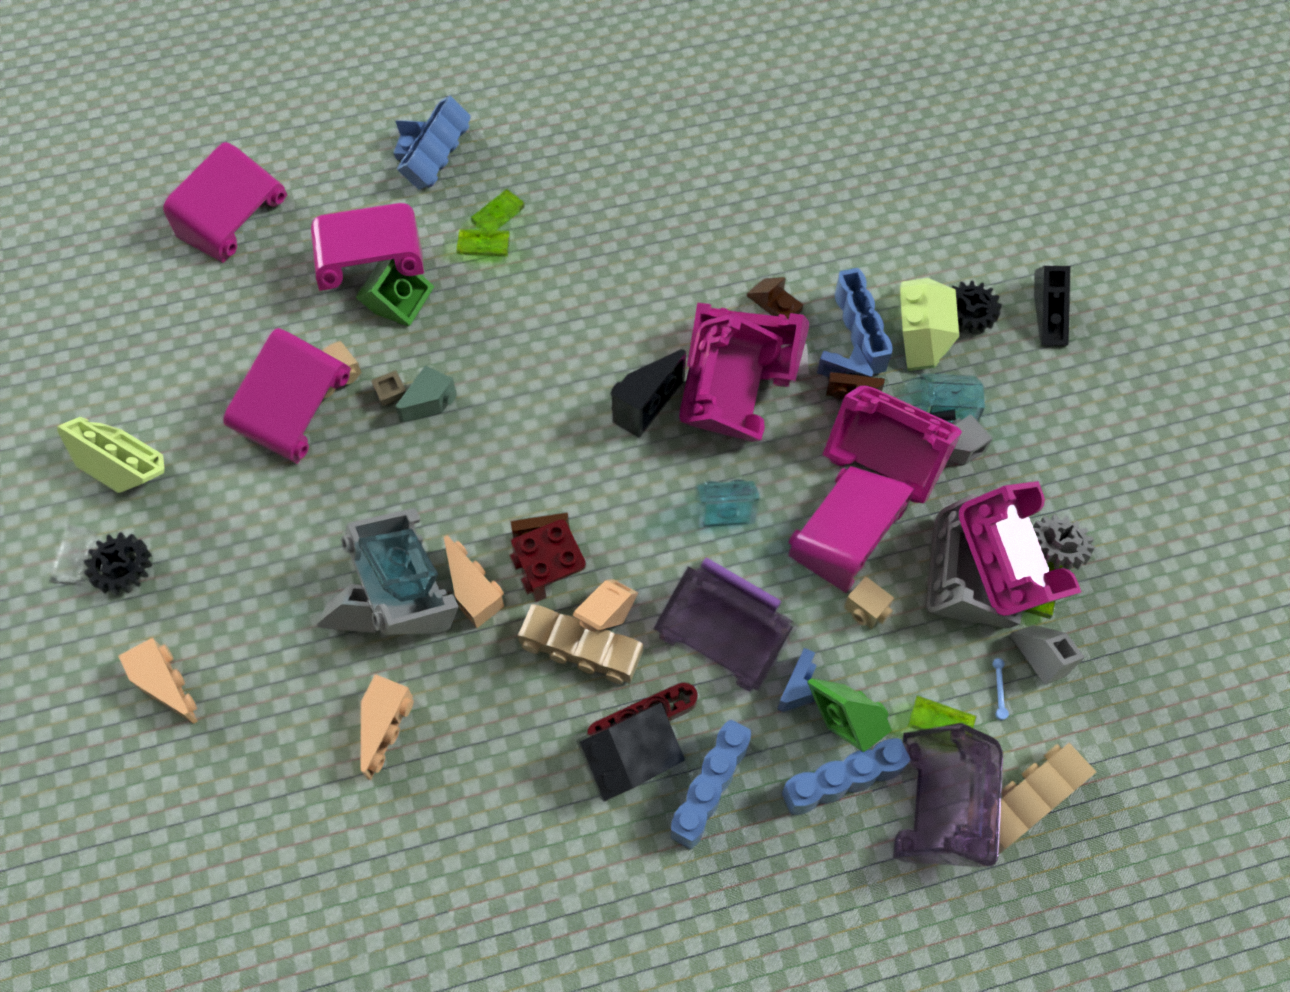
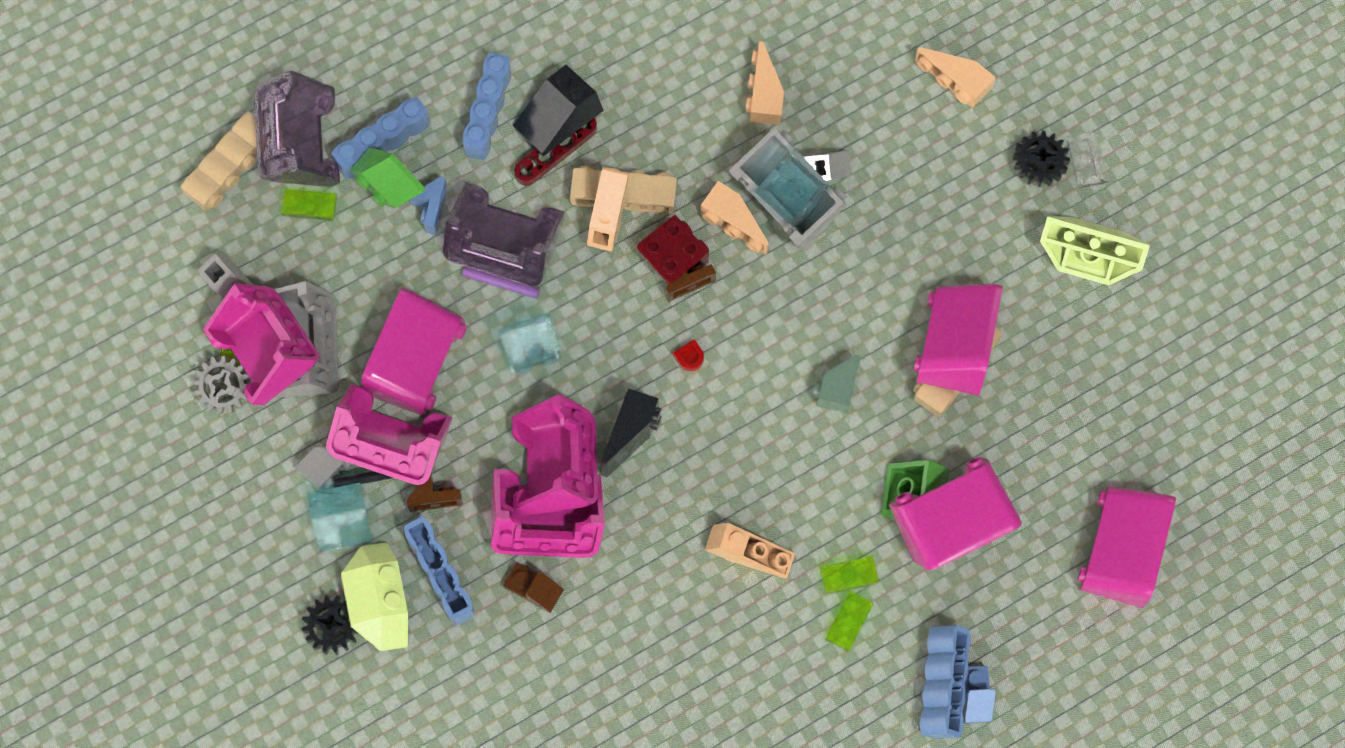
camera: 165 degrees right, 10 degrees up
(388, 388) = (878, 385): dark tan plate -> none
(564, 463) = (690, 356): none -> red tile
(570, 280) = (749, 550): none -> light nougat slope
(836, 363) = (441, 517): medium blue slope -> none
(869, 603) = (384, 285): tan brick -> none
(1001, 713) = (260, 229): light blue hinge -> none
(1052, 304) = (249, 650): black slope -> none

